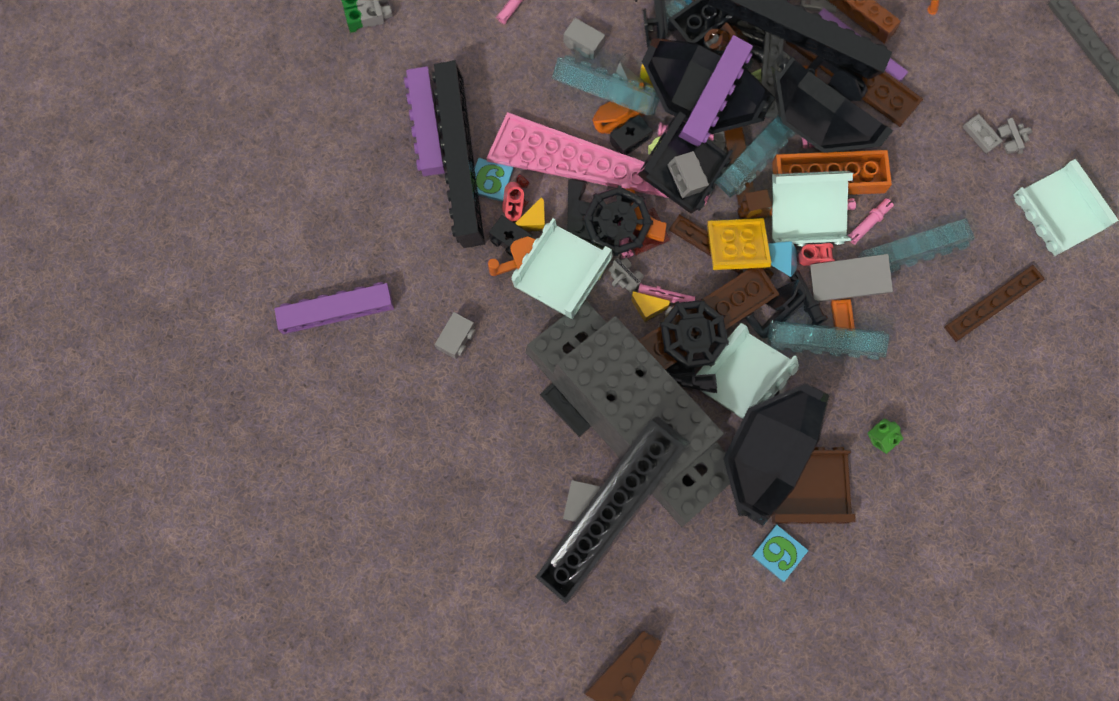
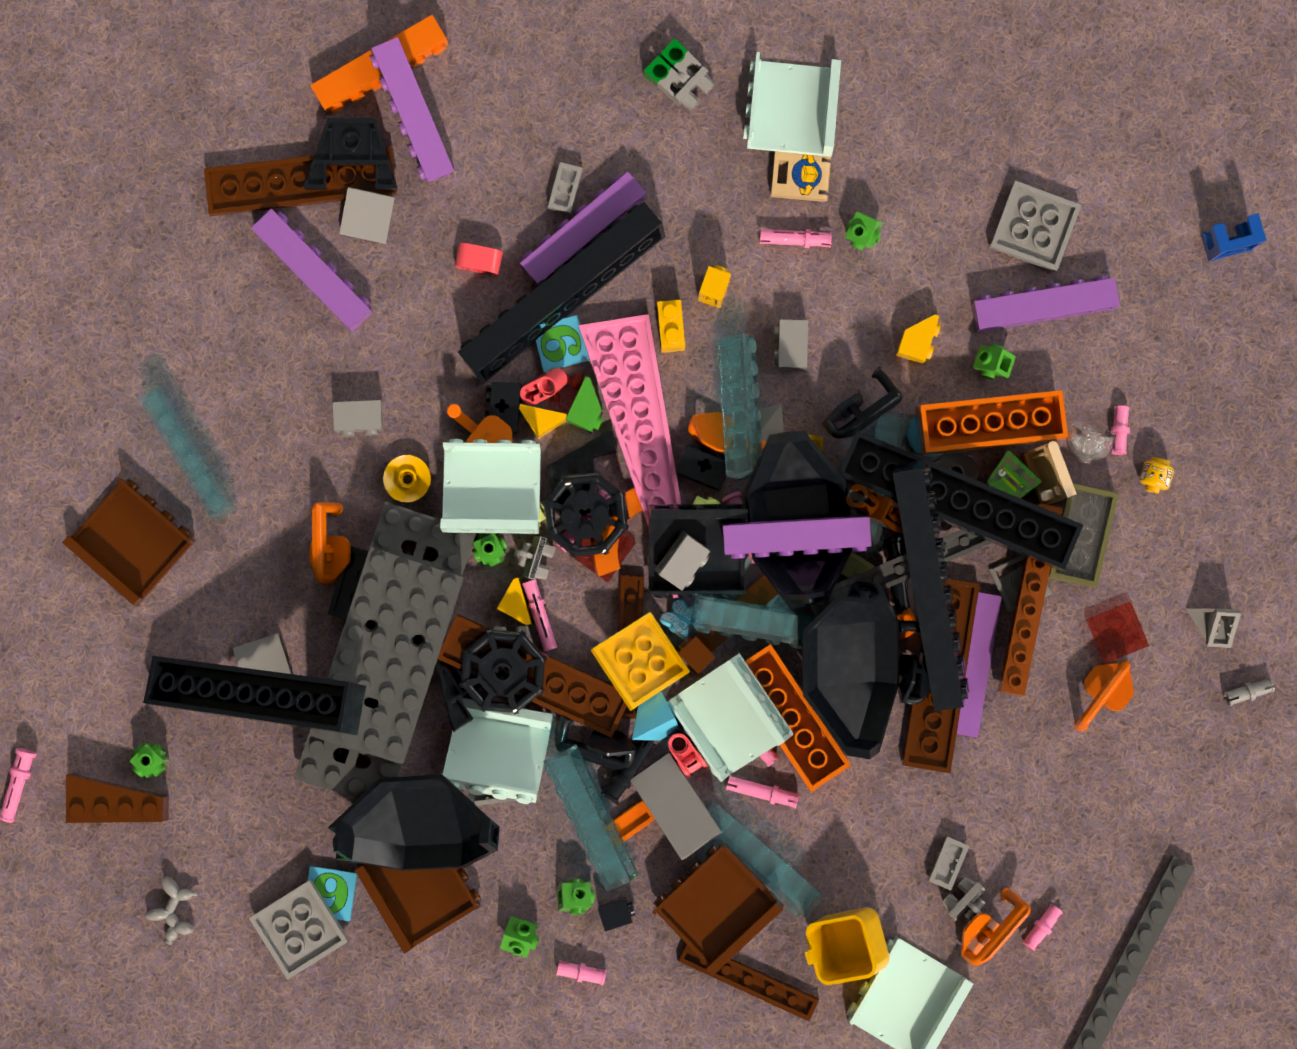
camera: 60 degrees right, 10 degrees up
(227, 185) = (360, 76): none -> orange brick
(268, 229) = (351, 144): none -> black wing
(268, 282) = (281, 184): none -> reddish brown plate
(272, 177) = (412, 109): none -> medium lavender brick
(322, 250) = (367, 215): none -> light grey tile
(390, 117) = (565, 188): none -> light grey piece
(399, 197) = (478, 259): none -> coral beam
(405, 467) = (188, 454): none -> clear light blue brick
(441, 547) = (130, 542): none -> reddish brown panel
(516, 59) = (714, 286): none -> yellow brick
(516, 319) = (394, 478): none -> yellow dish
(524, 102) = (671, 326): none -> yellow brick
(536, 412) = (327, 553): none -> orange piece
(544, 185) = (586, 408): none -> bright green slope
(600, 627) = (157, 760): none -> bright green brick
(601, 306) = (494, 557): none -> bright green brick
(723, 206) = (678, 618): none -> medium azure animal
(730, 682) = (171, 919): none -> light grey piece
(795, 589) = (299, 929): none -> light grey plate
(877, 381) = (575, 896): none -> bright green brick
(903, 362) = (616, 914): none -> black brick
(932, 409) = (581, 972): none -> bright pink pin
(938, 289) = (718, 907): none -> reddish brown panel
(1011, 219) = (847, 946): none -> yellow piece
(1046, 136) = (984, 936): none -> orange piece
(1056, 101) = (1042, 927): none -> bright pink pin

